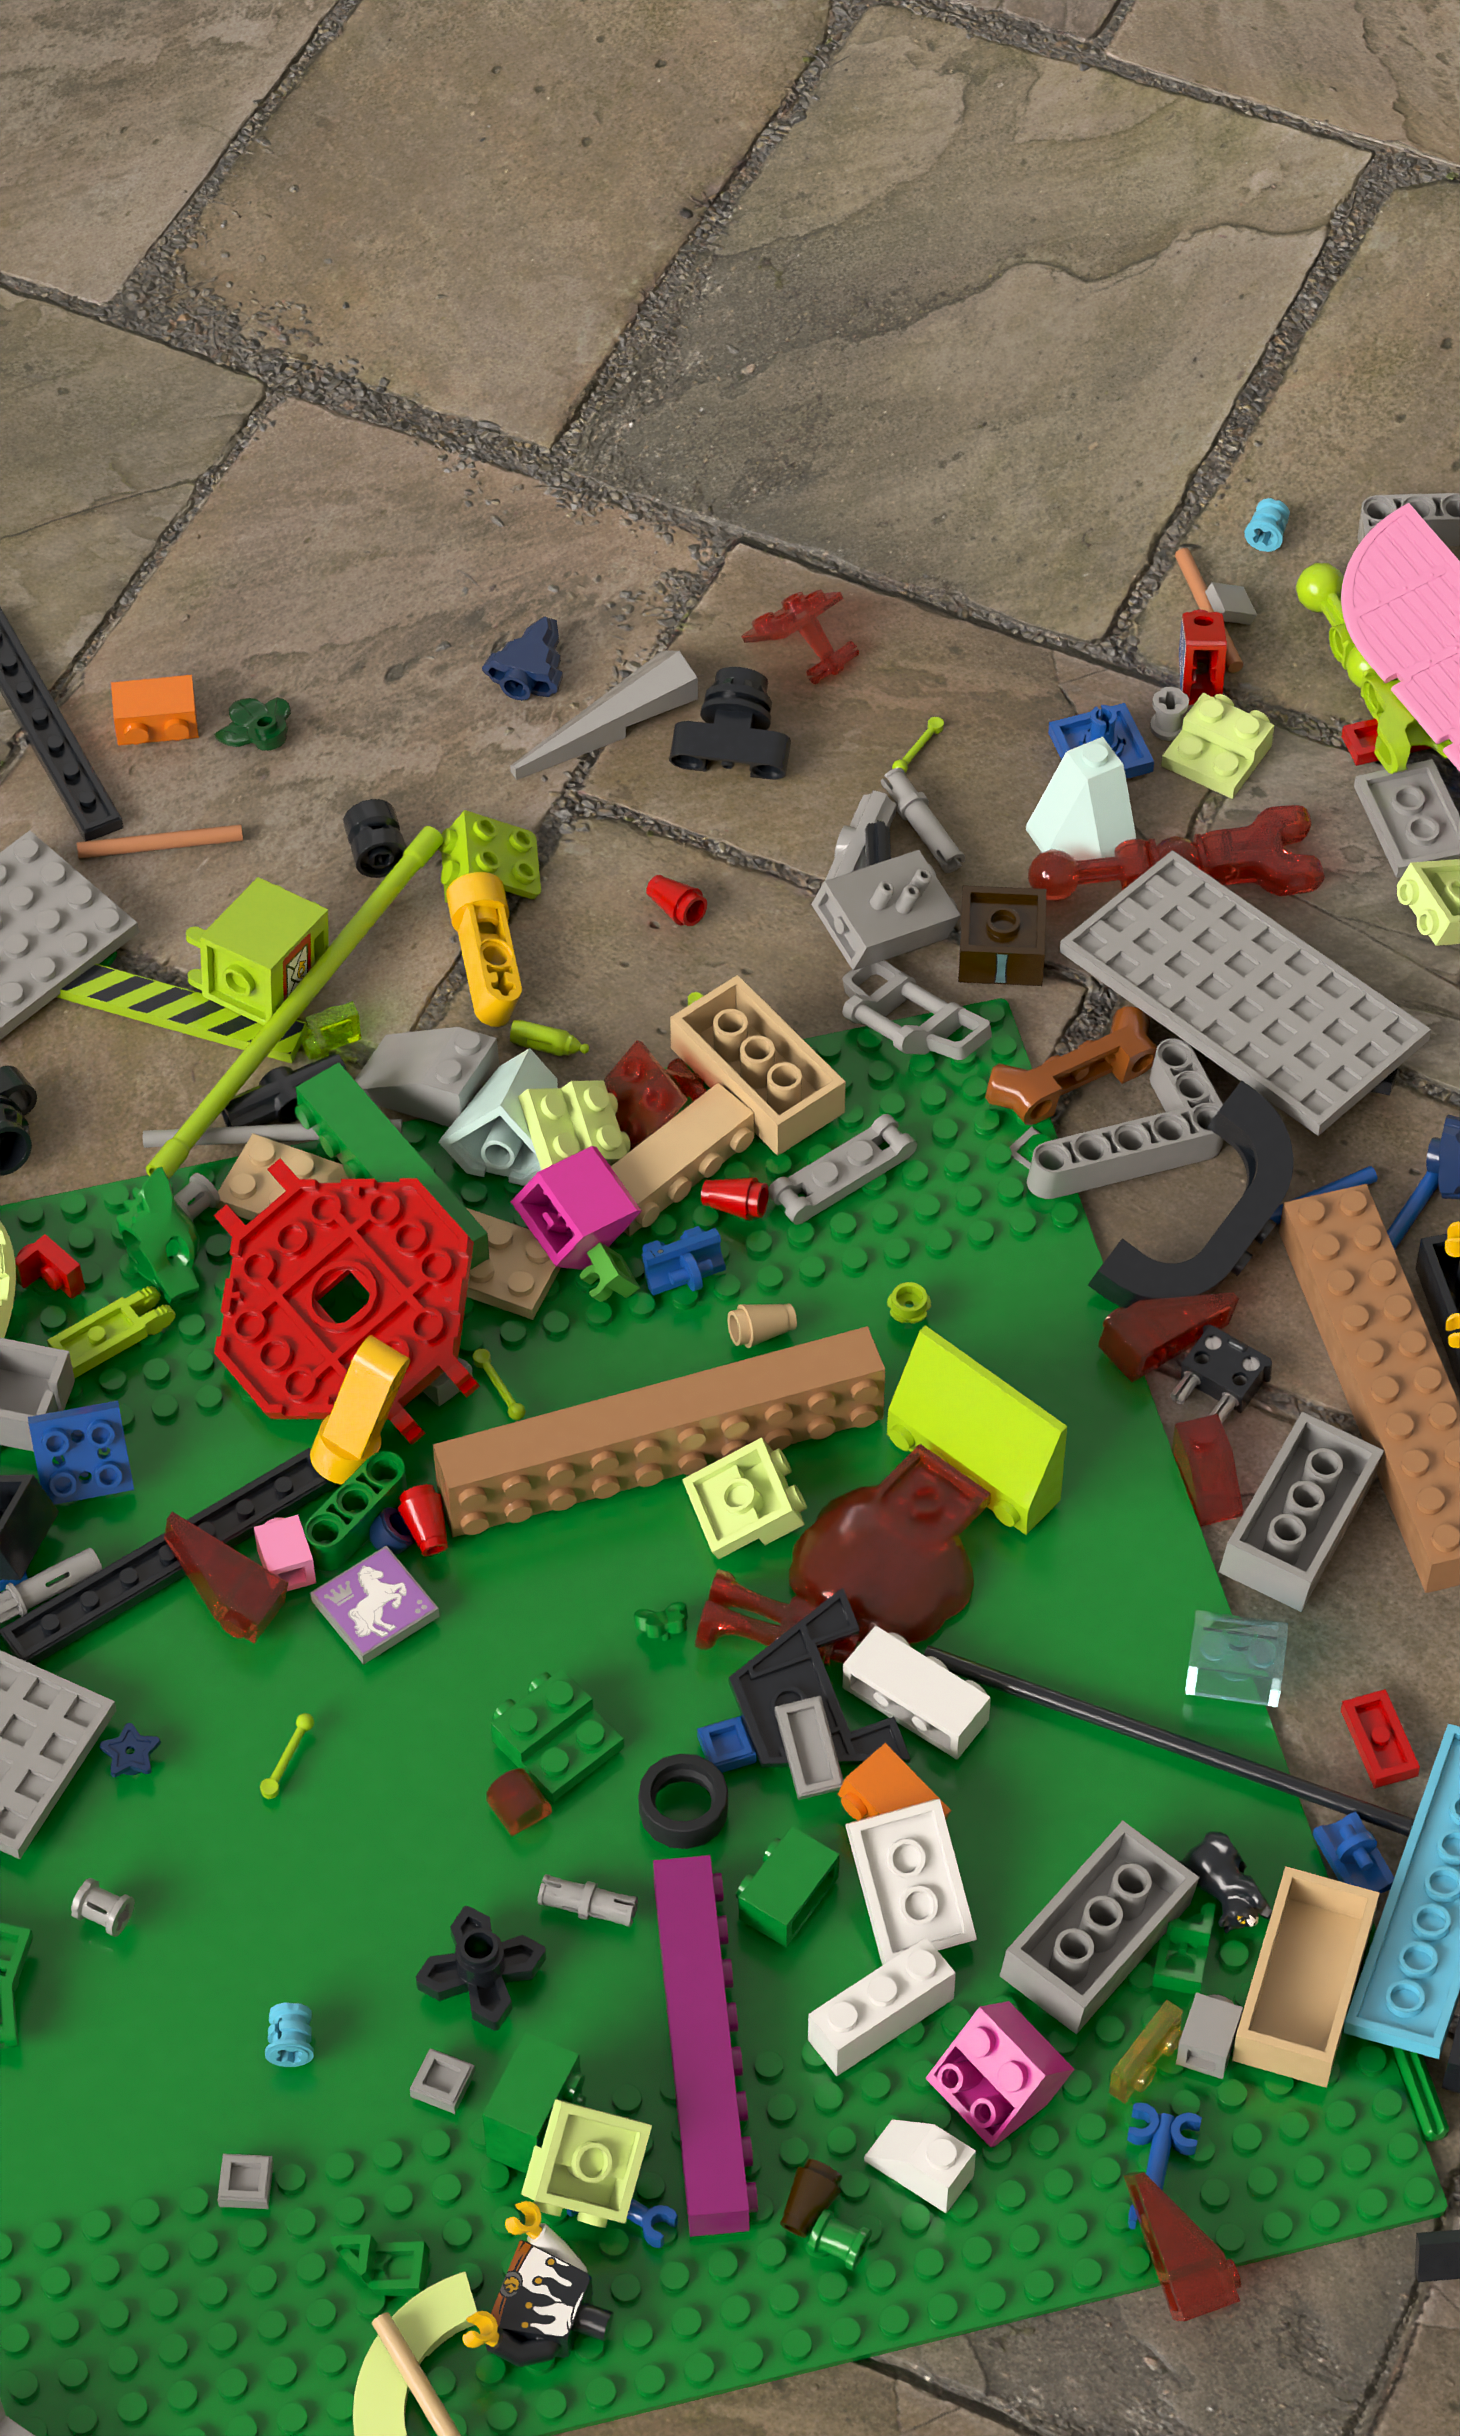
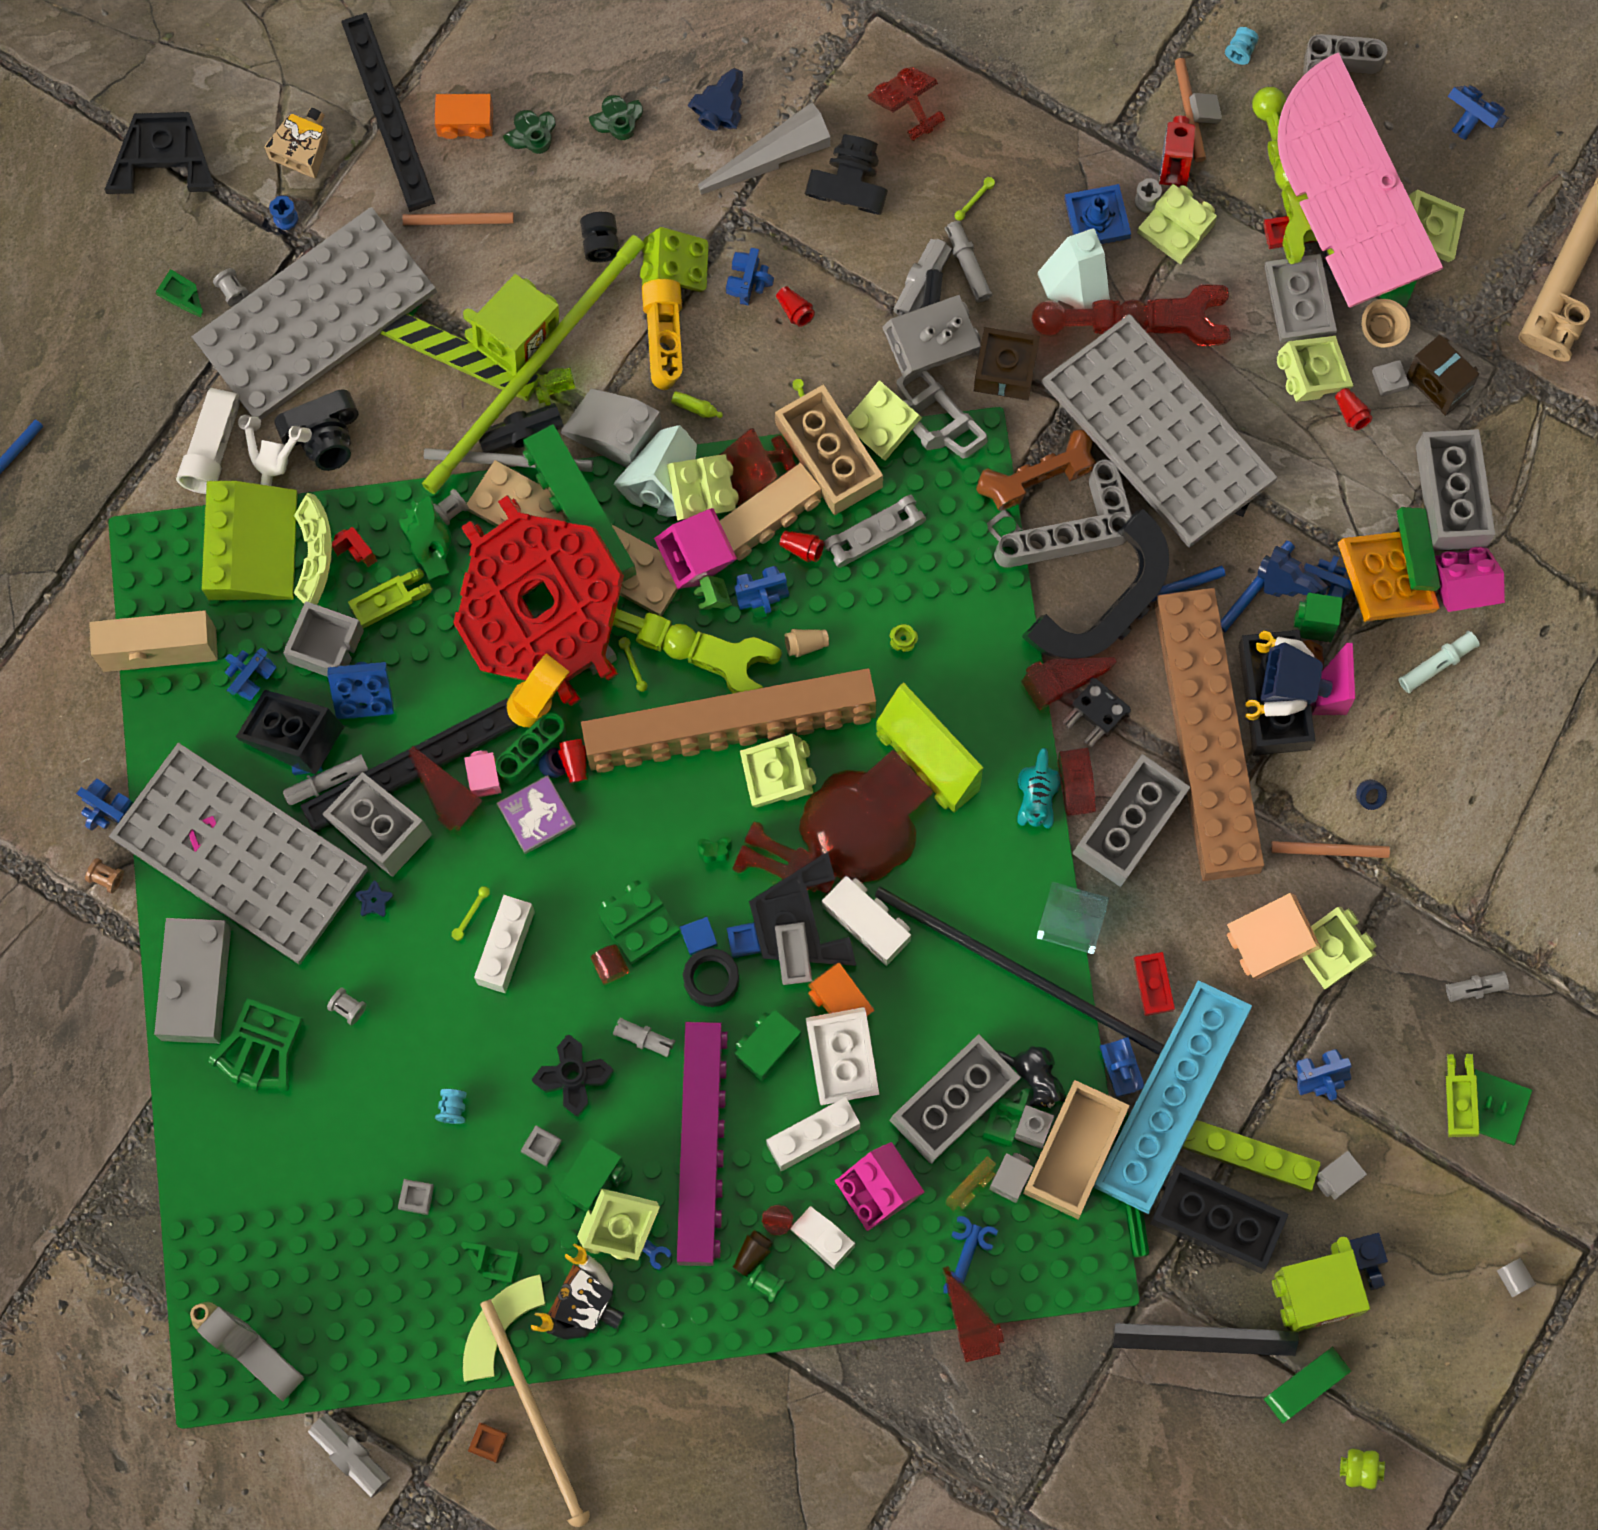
camera: 10 degrees right, 20 degrees up
(128, 1638) = (378, 824): none -> light grey slope
(347, 1787) = (504, 944): none -> white brick
(380, 695) = (617, 117): none -> dark green plate
(595, 882) = (749, 264): none -> blue hips
(607, 1348) = (701, 649): none -> lime piece
(652, 1743) = (698, 936): none -> blue tile
(835, 1019) = (882, 420): none -> yellowish green plate
(843, 2145) = (777, 1220): none -> clear red plate
(1152, 1478) = (1038, 786): none -> teal animal
(1231, 1955) = (1033, 1127): none -> light grey brick

